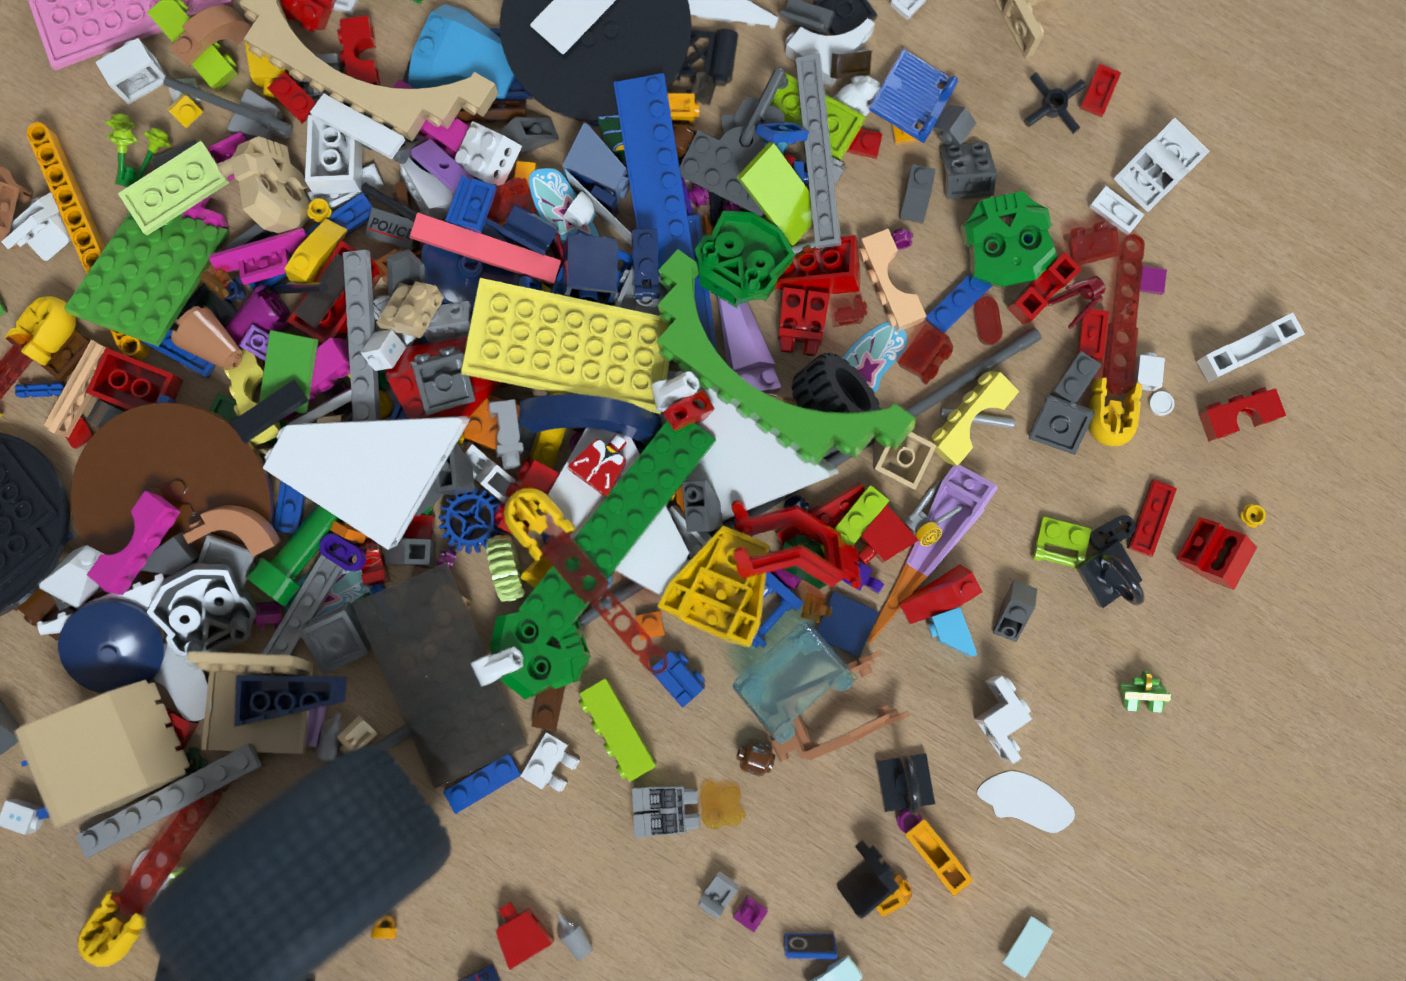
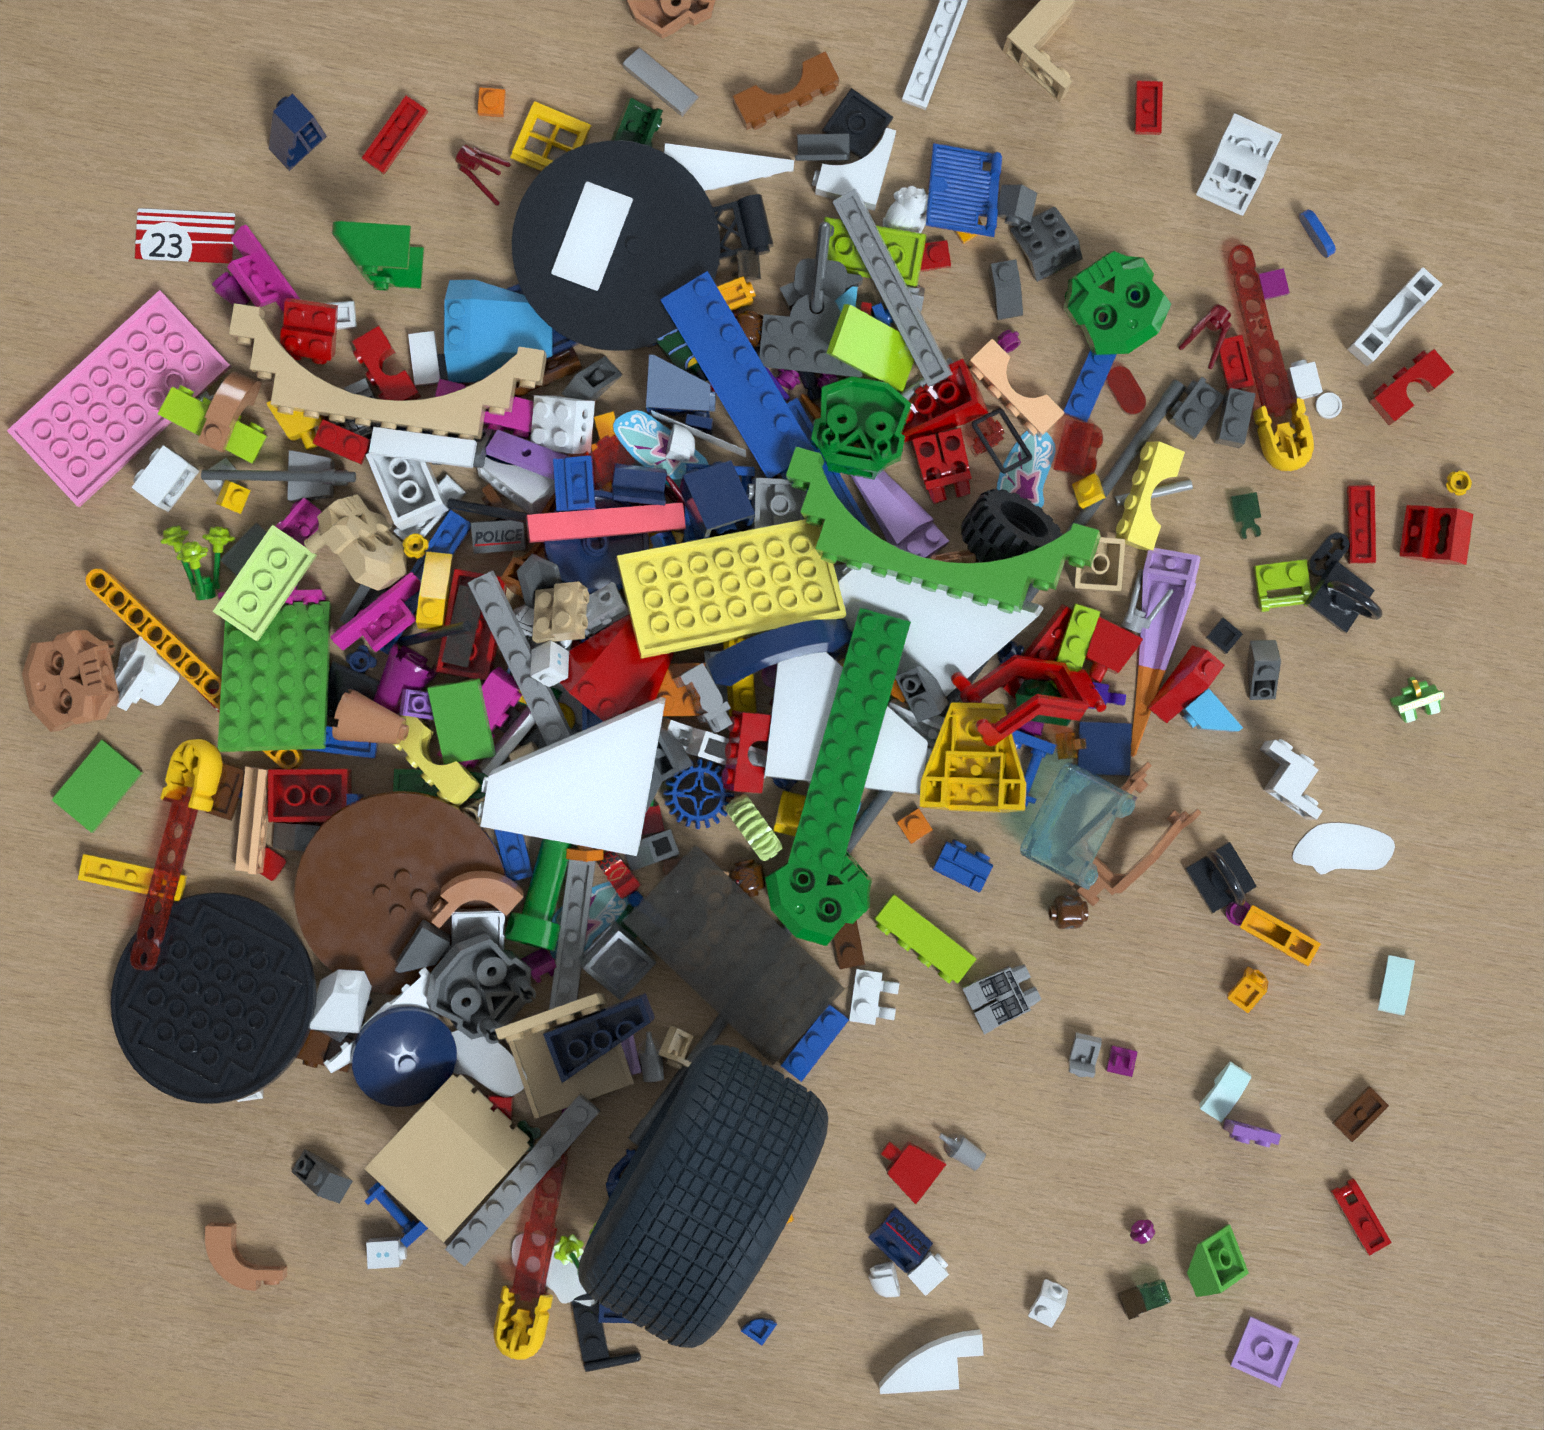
camera: 25 degrees left, 5 degrees up
(39, 389) = (213, 836): blue axle -> none
(152, 520) = (396, 917): dark pink arch -> none
(217, 282) = (348, 660): clear orange tile -> none
(269, 411) = (464, 768): black tile -> none
(344, 553) = (589, 876): dark purple plate -> none
(396, 59) = (424, 358): none -> white tile
(441, 380) = (622, 671): dark grey plate -> none
(448, 556) = (689, 840): magenta plate -> none
(483, 611) = (748, 876): none -> reddish brown head
(492, 667) = (783, 928): white piece -> none
(559, 550) = (809, 786): clear red piece -> none
(600, 464) = (809, 691): red torso -> none
(645, 263) = (768, 473): dark blue plate -> none
(672, 391) = (849, 594): white piece -> none
(688, 411) = (875, 605): red leg -> none
(723, 803) = (1053, 967): clear yellow plate -> none
(782, 132) = (850, 286): blue plate -> none
(810, 946) = (1190, 1068): slope -> none
(848, 325) = (1003, 470): none -> black piece
(851, 63) = (888, 182): dark brown tile -> none
(868, 883) = (1223, 985): black bracket -> none
(921, 392) = (1088, 490): none -> yellow plate
(928, 534) = (1151, 629): yellow tile -> none
(991, 567) = (1224, 635): none -> black plate
(1039, 292) = (1163, 349): red arch -> none
(1044, 359) = (1196, 409): none -> dark grey bracket
(1053, 465) = (1245, 510): none -> clear green plate
(1058, 95) = (1111, 130): black bar -> none
(1061, 424) = (1238, 468): dark grey tile -> none
(1093, 243) = (1200, 270): clear red bracket -> none
(1116, 210) = (1211, 227): white plate -> none
(1208, 251) = (1317, 233): none -> blue tile

